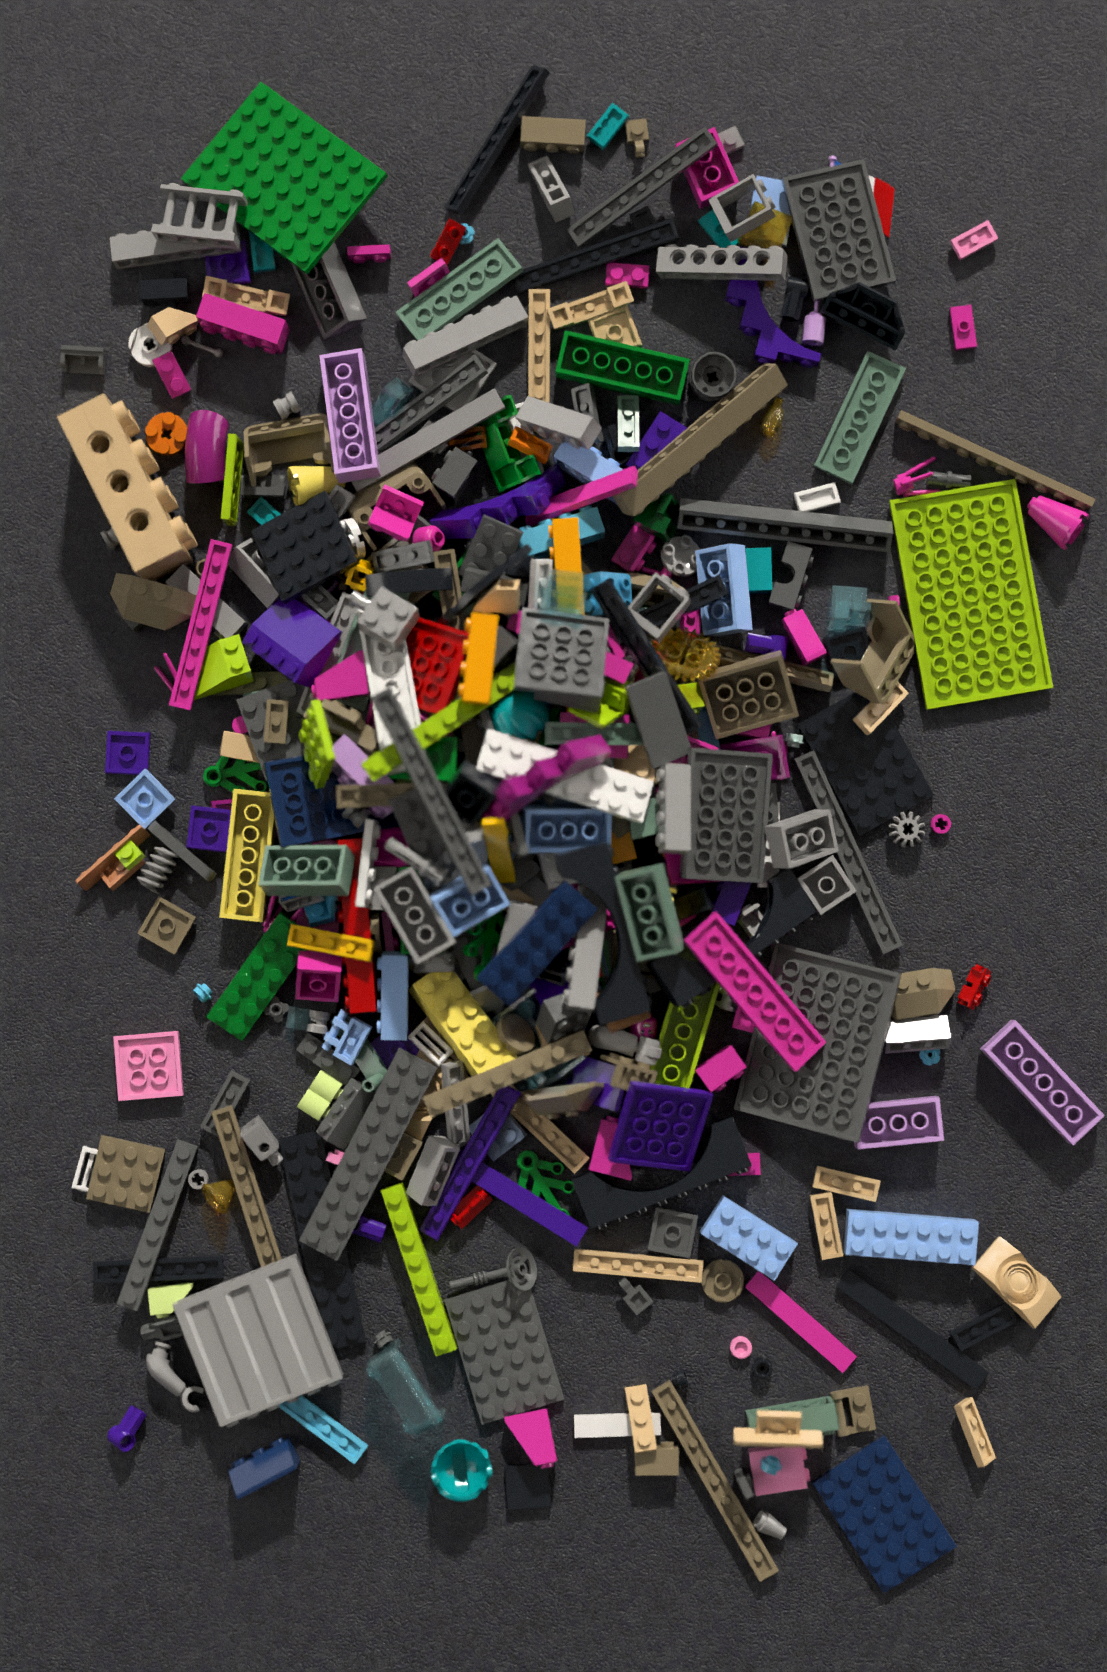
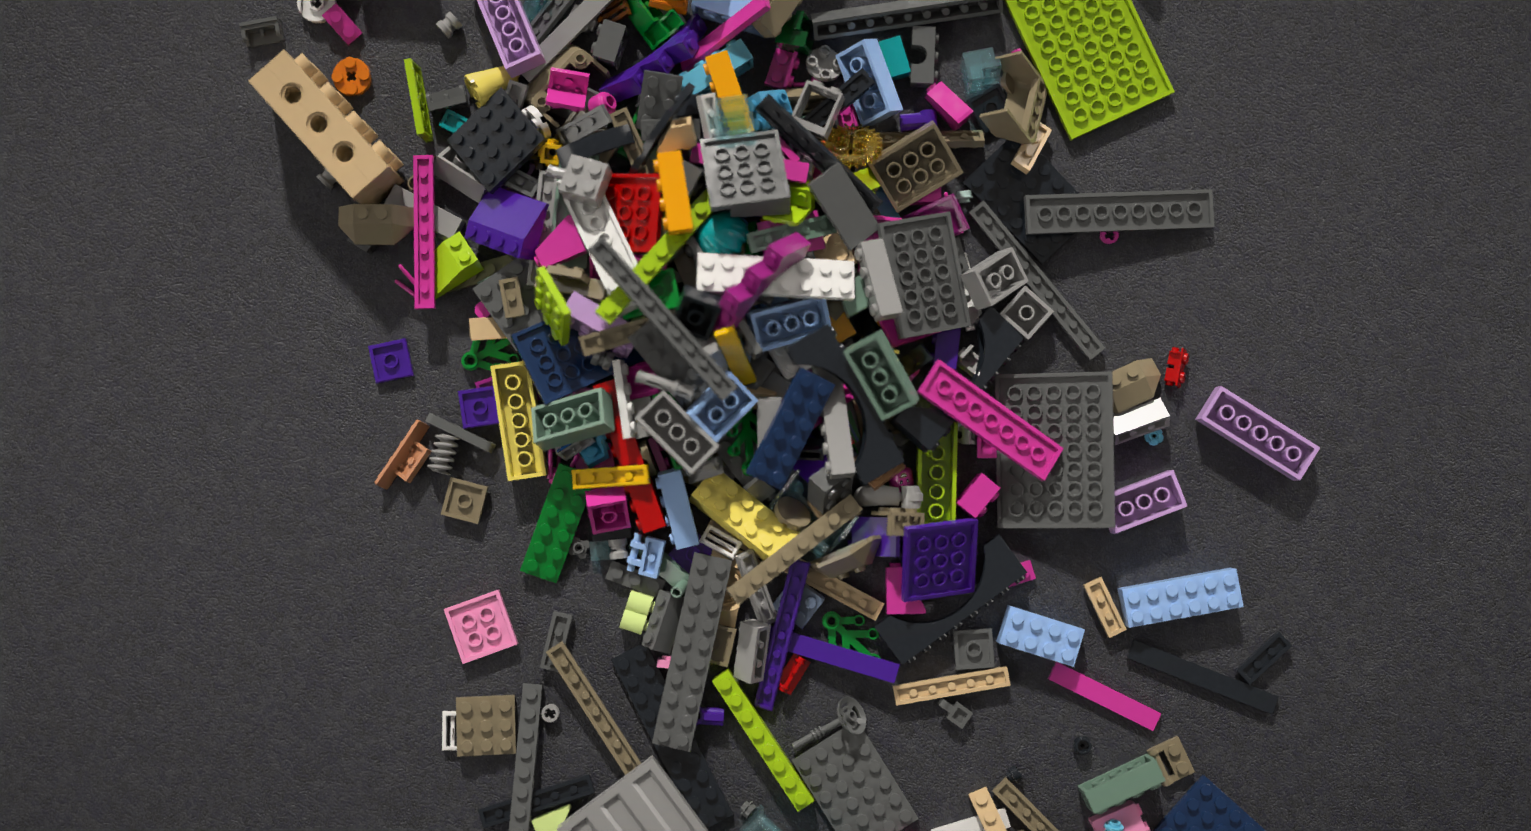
camera: 15 degrees left, 0 degrees up
(130, 855) = (416, 448): lime plate -> none
(144, 798) = (416, 396): light blue plate -> none
(202, 992) = (511, 550): medium azure plate -> none
(205, 447) = (387, 77): magenta brick -> none
(219, 1194) = (572, 721): clear yellow hat -> none
(256, 1133) = (590, 659): light grey torso -> none
(287, 442) = (458, 56): dark tan windscreen -> none
(722, 1280) = (1027, 678): dark tan tile -> none
(740, 1347) = (1058, 732): bright pink tile -> none
(778, 1429) = (1114, 796): tan bracket -> none
(846, 1183) = (1112, 566): tan plate -> none
(899, 829) = (1075, 248): light grey gear -> none
(957, 802) = (1118, 211): none -> dark grey plate
(975, 1432) = (1281, 751): tan plate -> none
(1017, 1281) = (1282, 611): tan slope -> none

